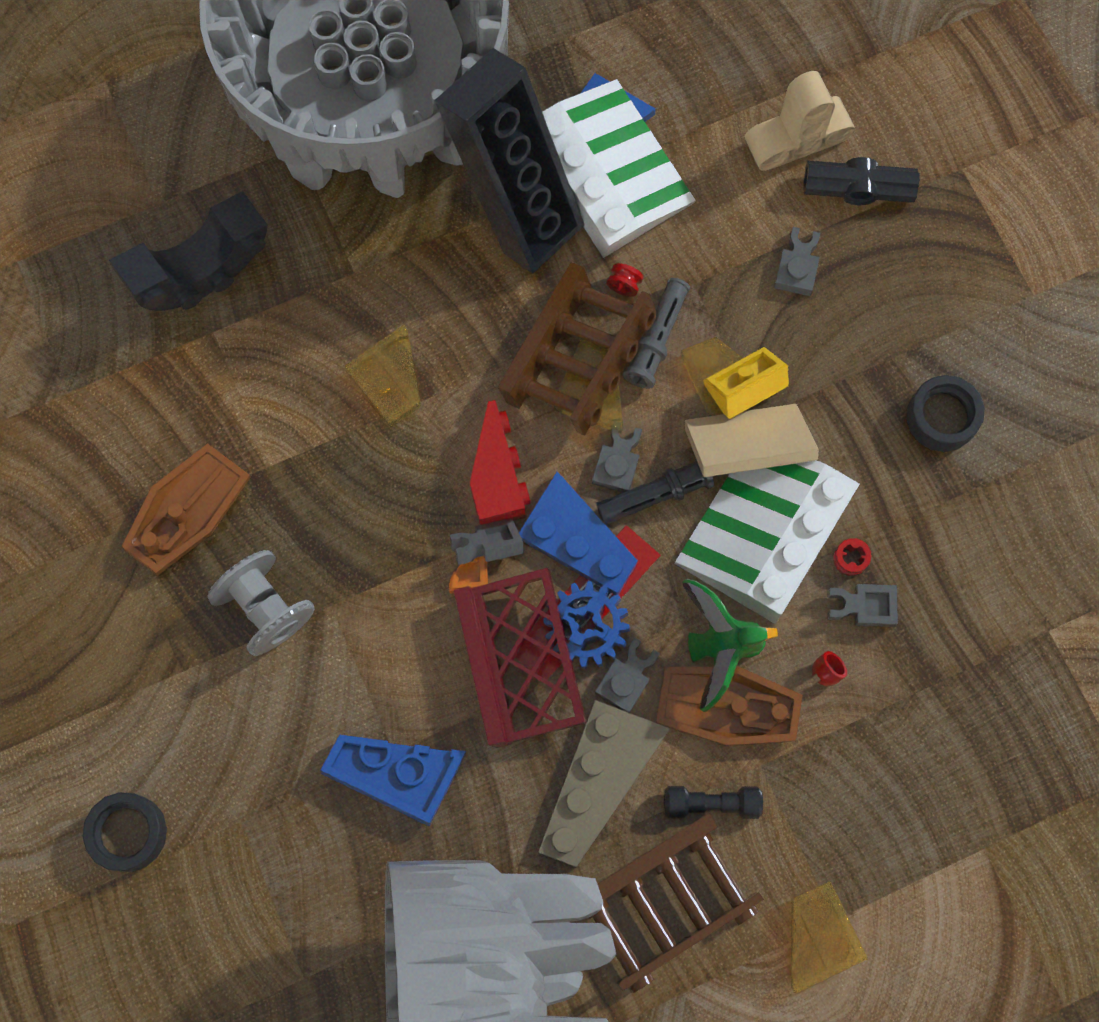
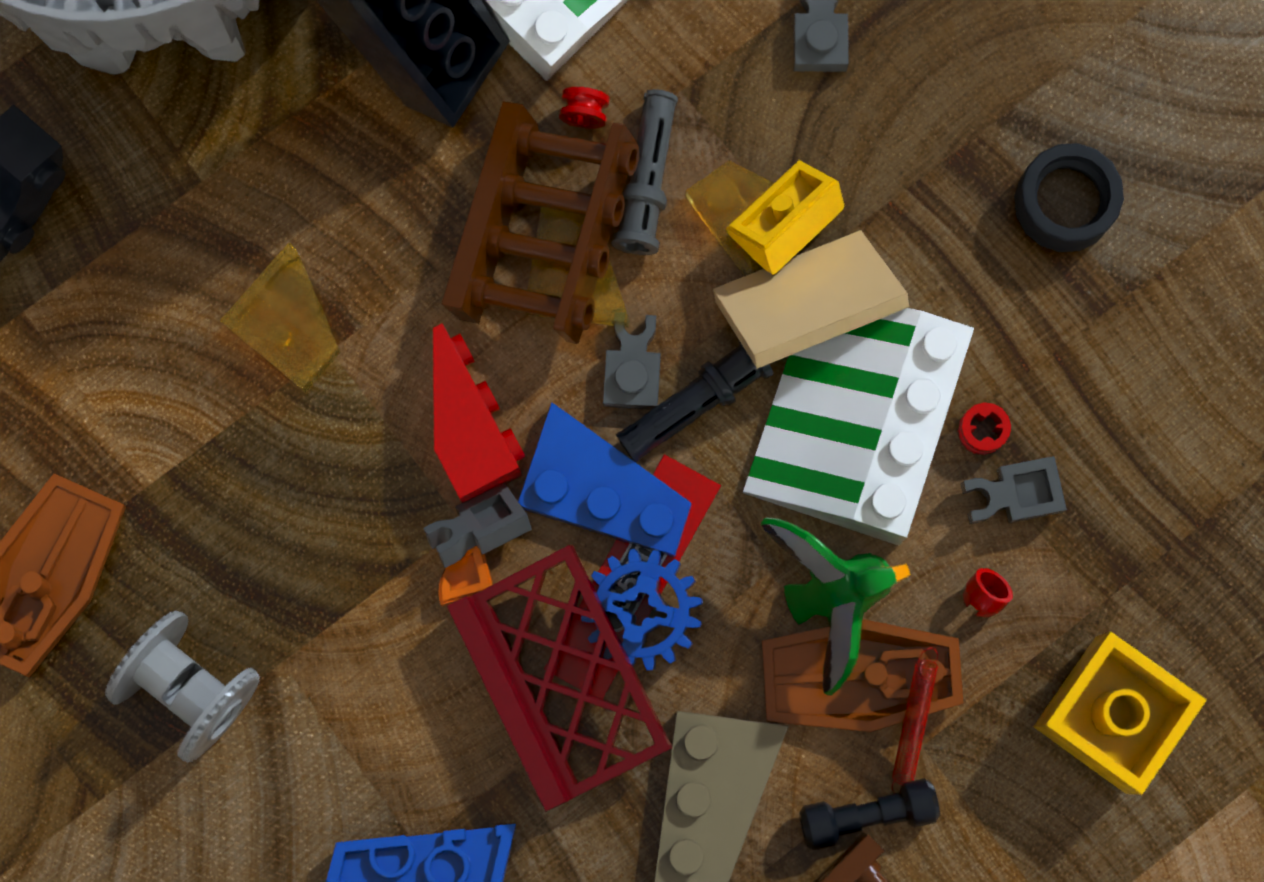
camera: 10 degrees left, 5 degrees up
(625, 681) = (711, 674): dark grey plate -> none
(759, 744) = (910, 750): none -> red piece
(904, 771) = (1120, 713): none -> yellow brick

